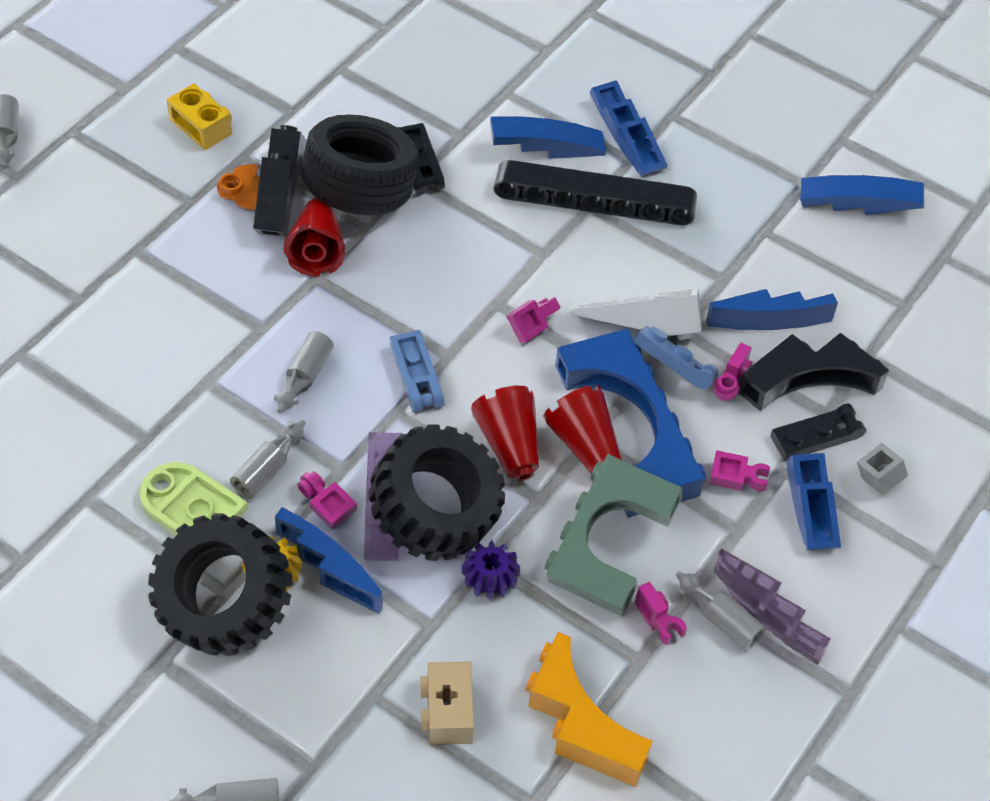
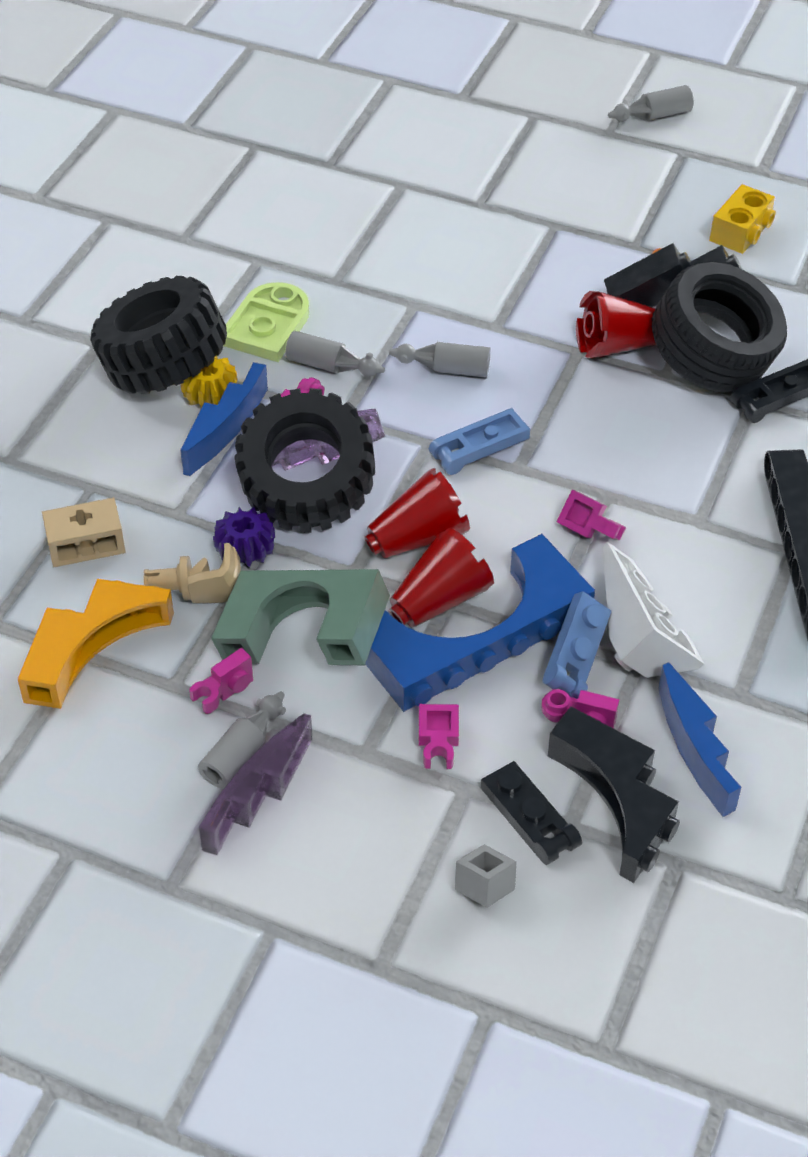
camera: 80 degrees right, 5 degrees down
(543, 595) = (199, 582): none -> tan piece
(813, 501) = (418, 812): blue slope -> none

